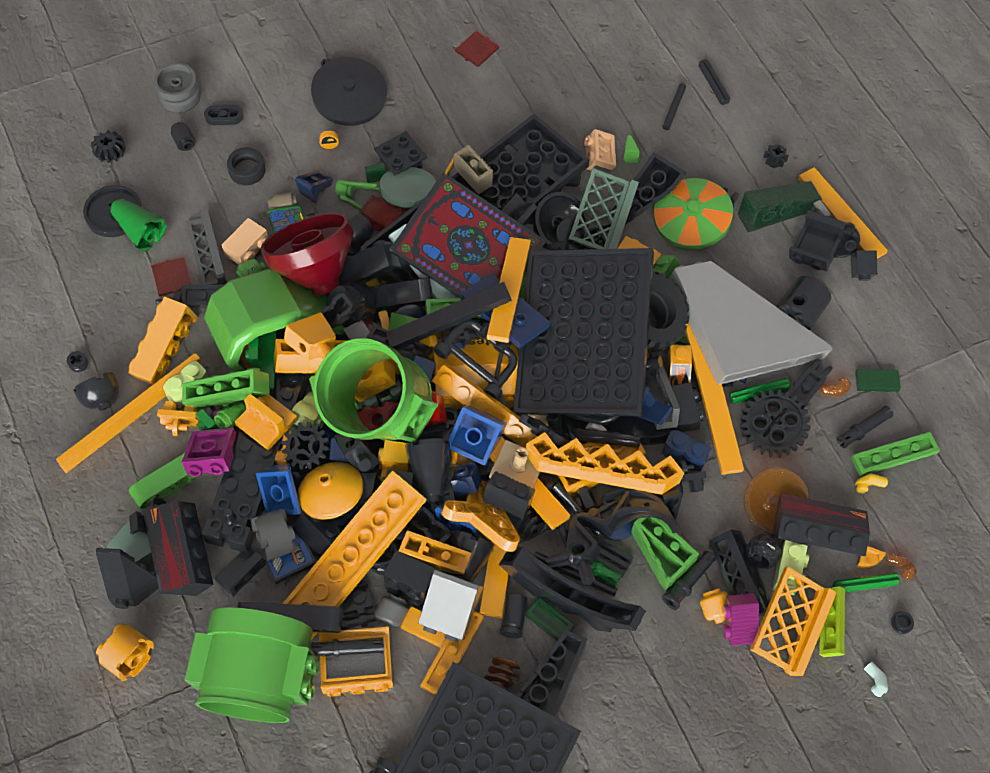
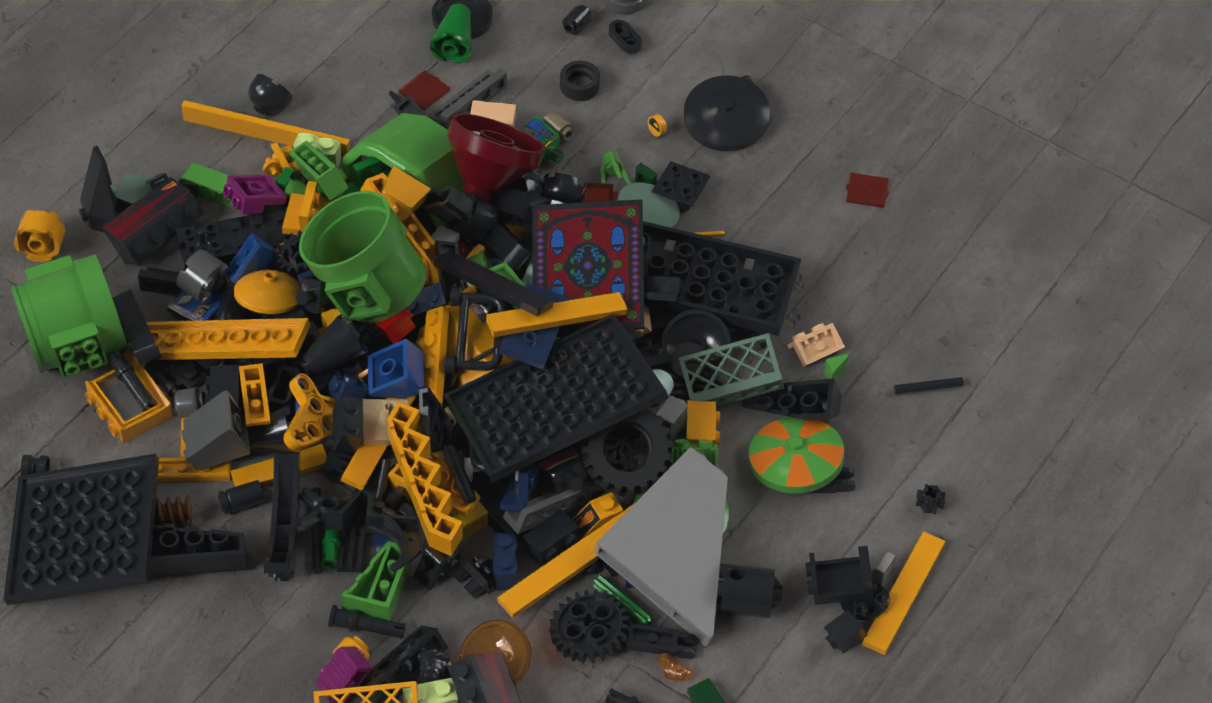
camera: 60 degrees right, 10 degrees down
(75, 367) = (292, 65): black bush -> none
(162, 340) = (348, 112): light orange wedge -> none
(311, 184) = (594, 134): dark blue slope -> none
(473, 169) = (683, 234): dark tan brick -> none
(549, 618) = (257, 530): dark green tile -> none
(714, 82) = (990, 406): black axle -> none
(776, 204) = (862, 521): clear green wedge -> none

